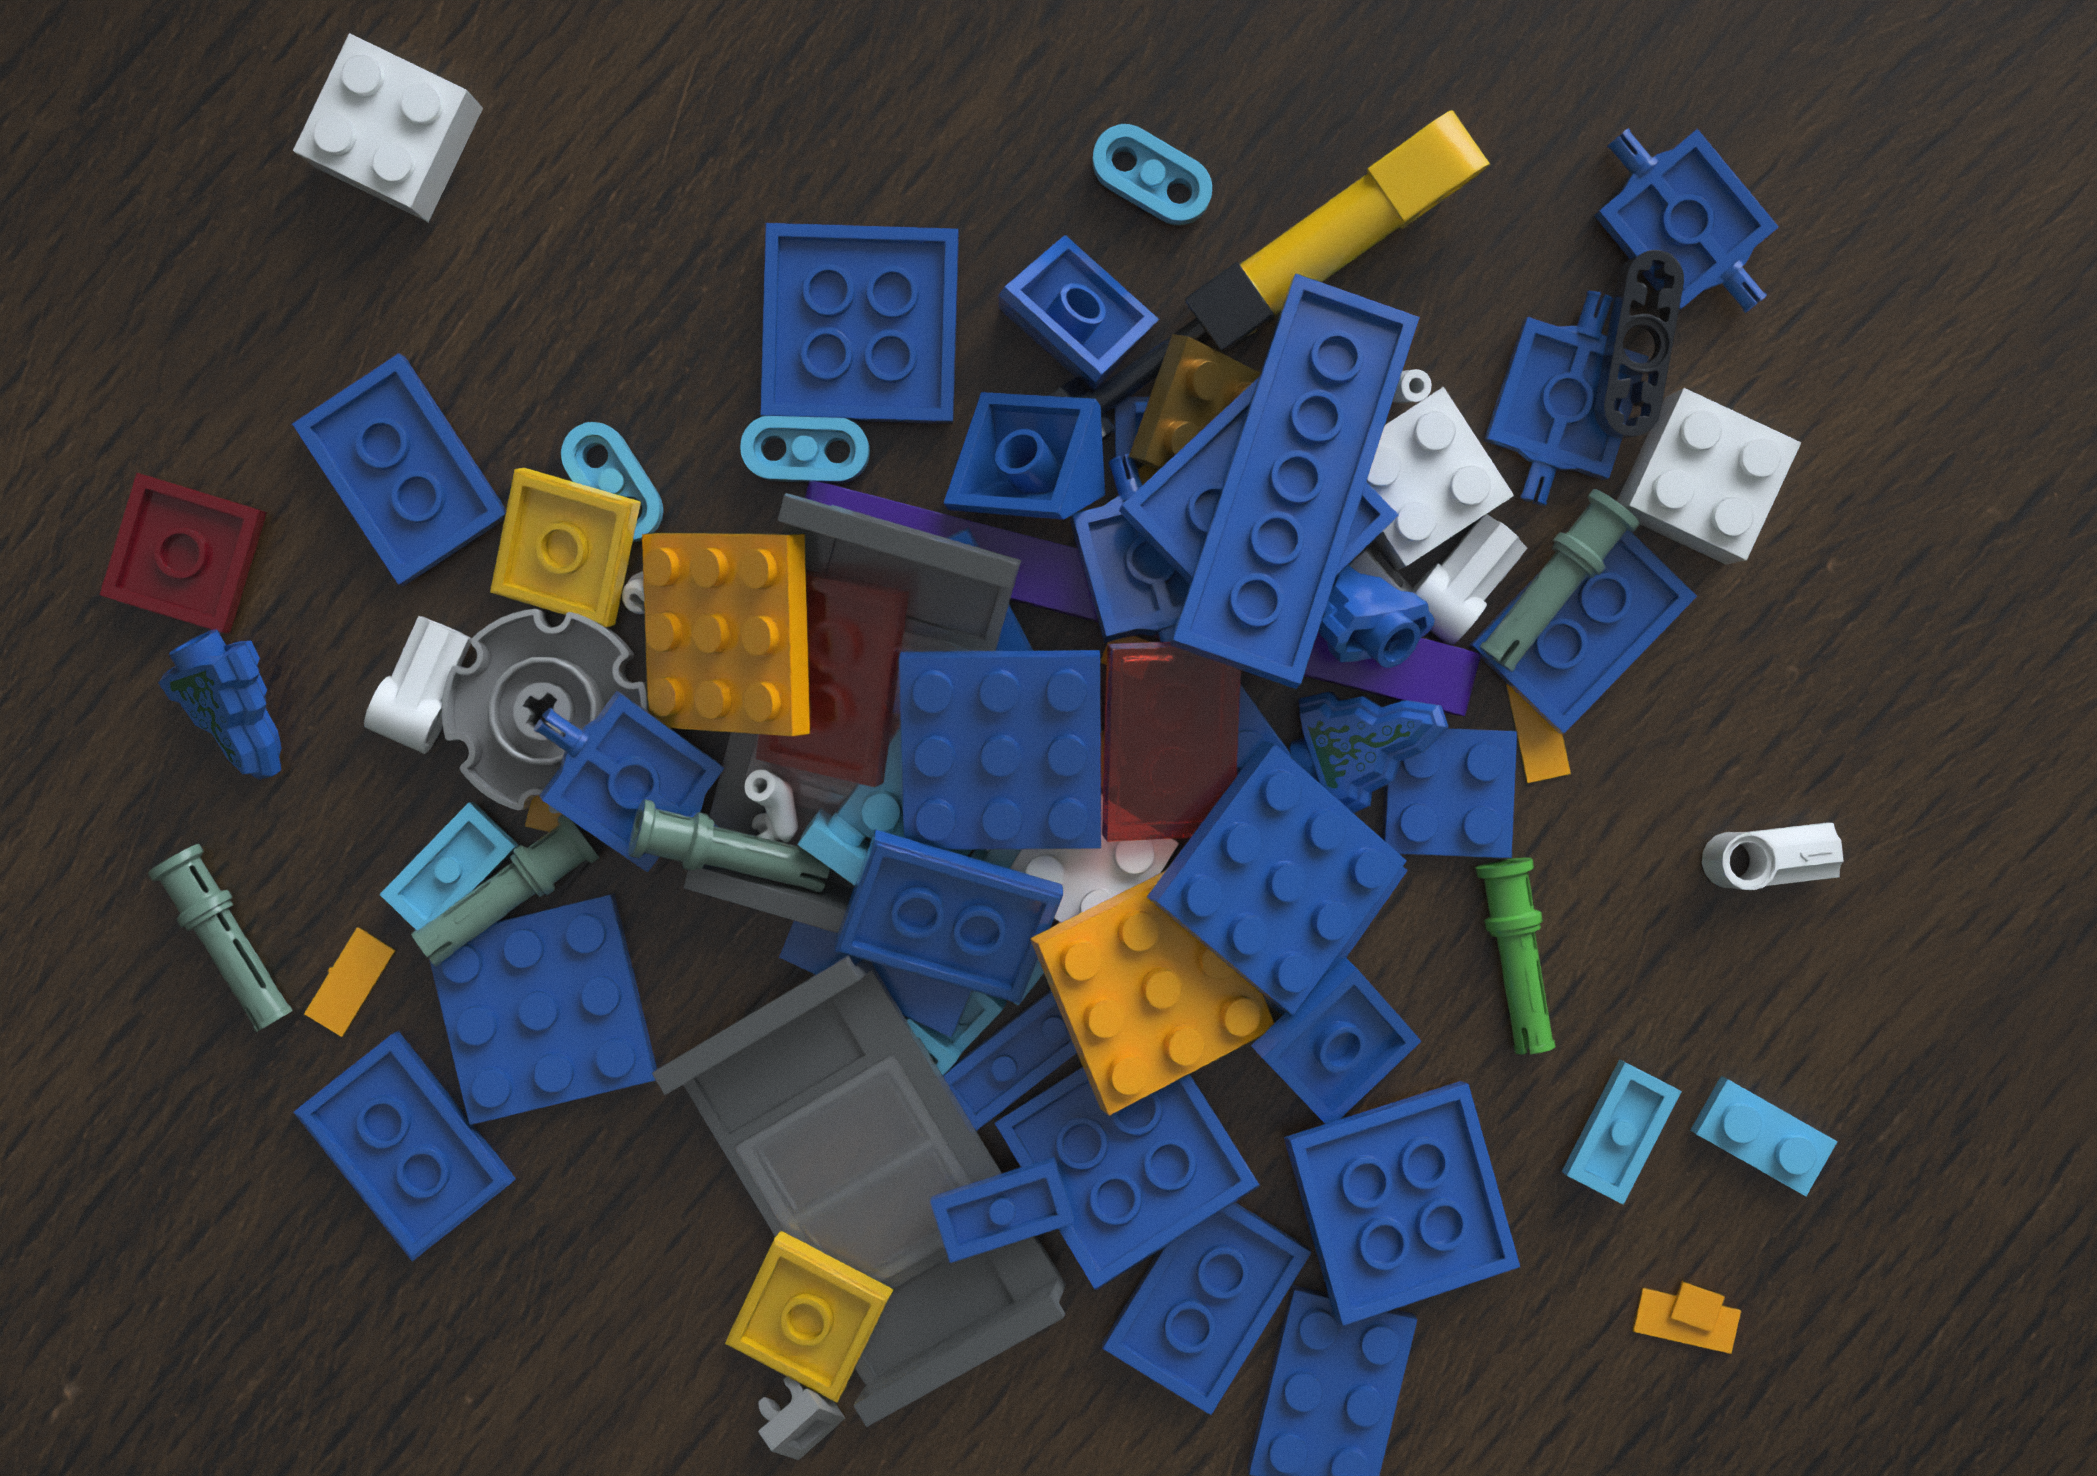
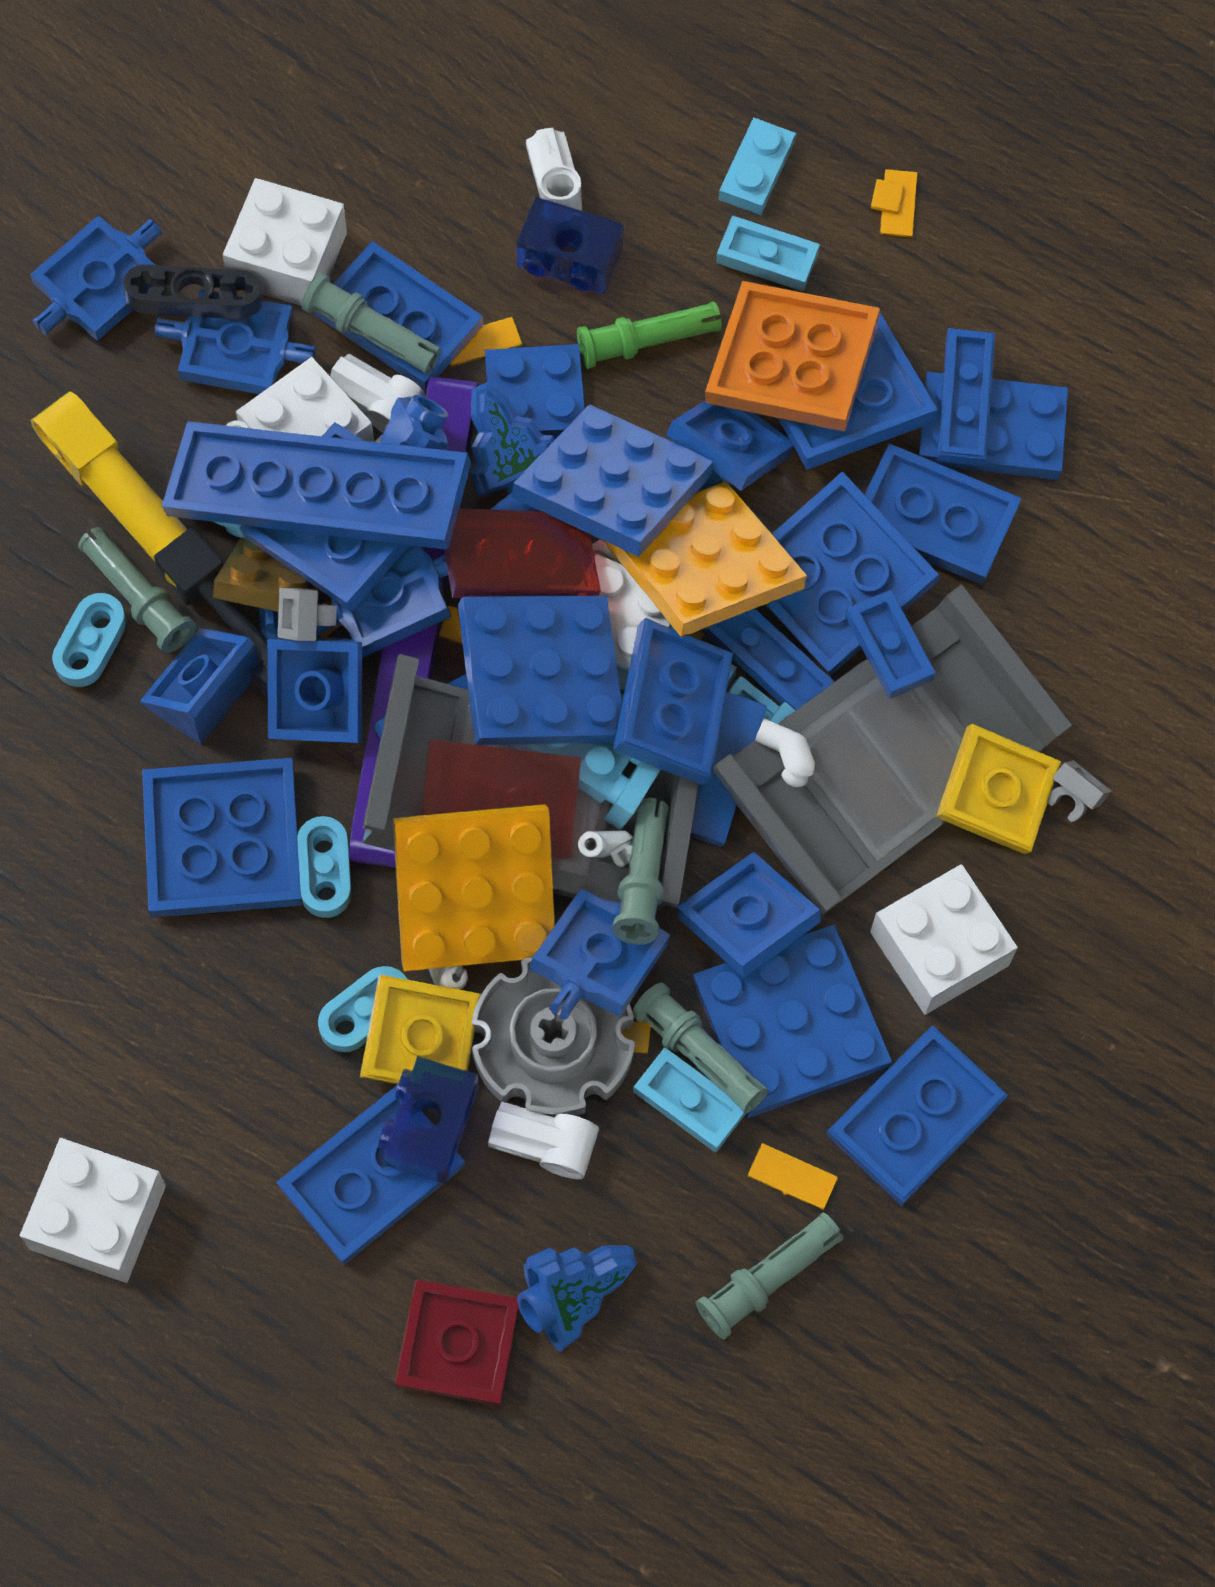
camera: 95 degrees left, 20 degrees down
(399, 542) = (433, 1150): none -> clear blue brick
(613, 1215) = (943, 939): none -> white brick
(671, 975) = (748, 914): none -> blue plate
(872, 1062) = (793, 751): none -> white arm
(1118, 447) = (301, 614): none -> light grey tile
(1193, 255) = (149, 604): none -> sand green pin
(1364, 1366) = (966, 397): none -> blue tile
(1445, 1144) = (793, 356): none -> orange plate
(1692, 844) = (559, 226): none -> clear blue brick

